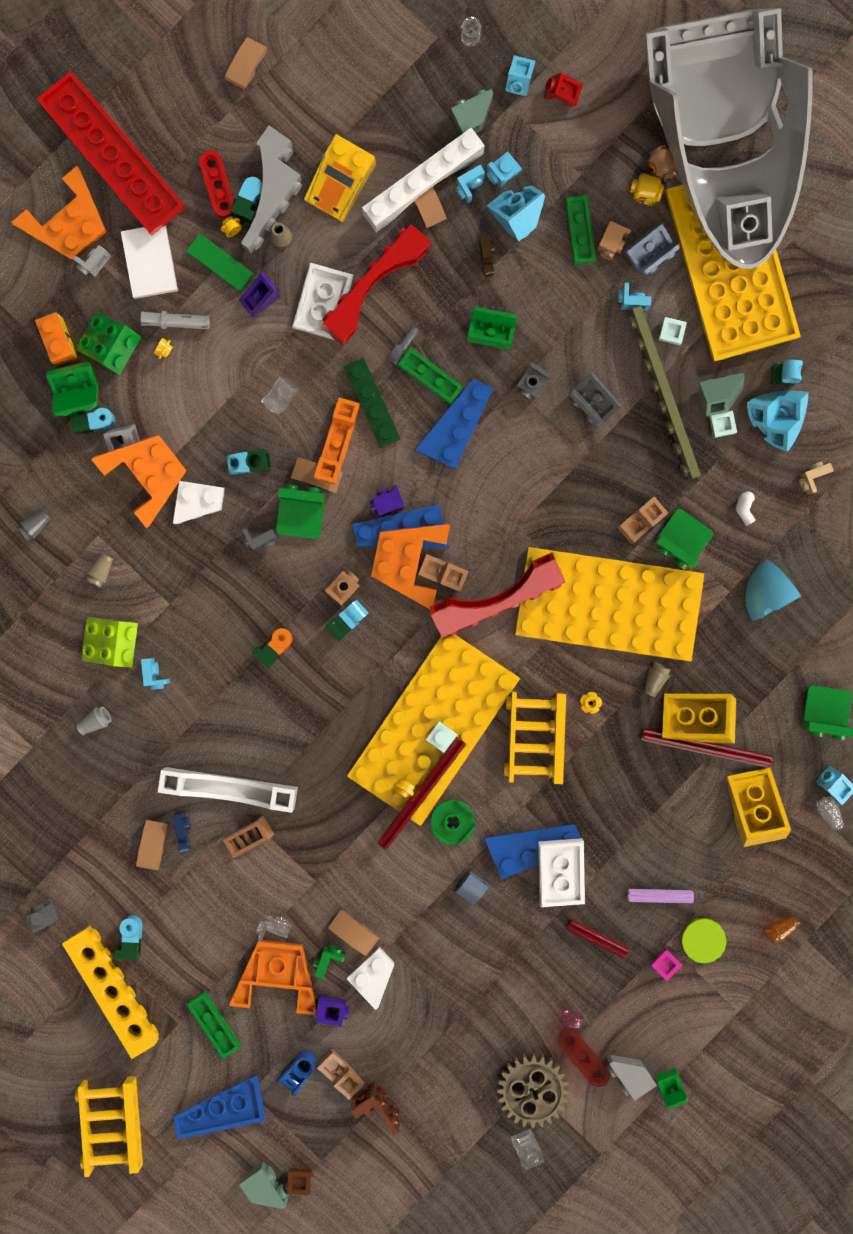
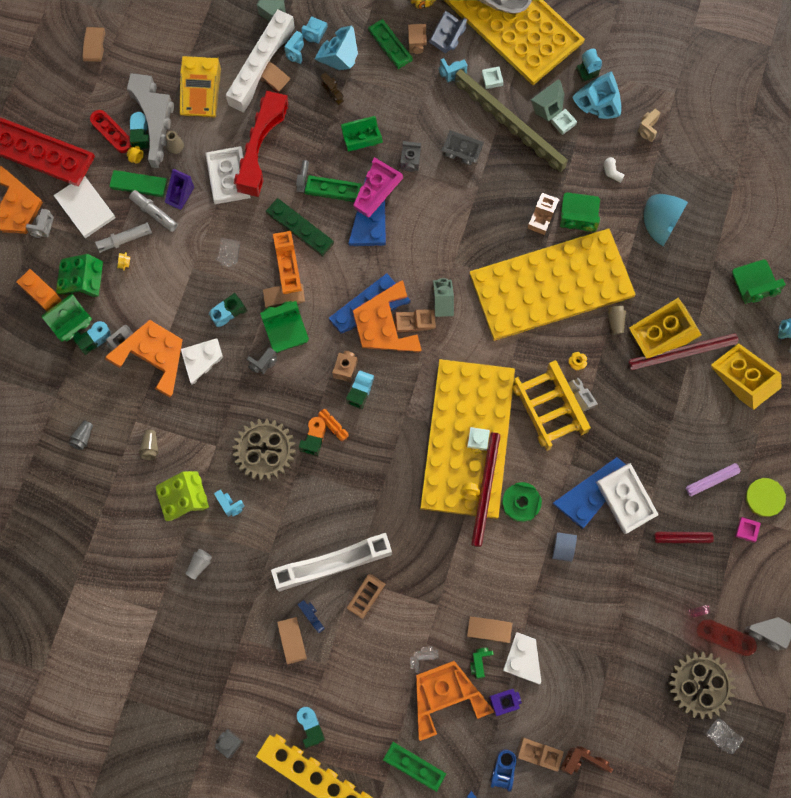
camera: 25 degrees left, 15 degrees down
(206, 653) = (261, 466): none -> dark tan gear
(217, 295) = (147, 205): none -> light grey pin
(300, 643) = (333, 425): none -> orange axle
(387, 501) = (347, 289): dark purple brick -> none
(456, 614) = (488, 285): arch -> none
(477, 402) = (378, 185): none -> dark pink wing
(485, 563) = (443, 297): none -> sand green slope
(575, 744) = (583, 396): none -> light grey plate

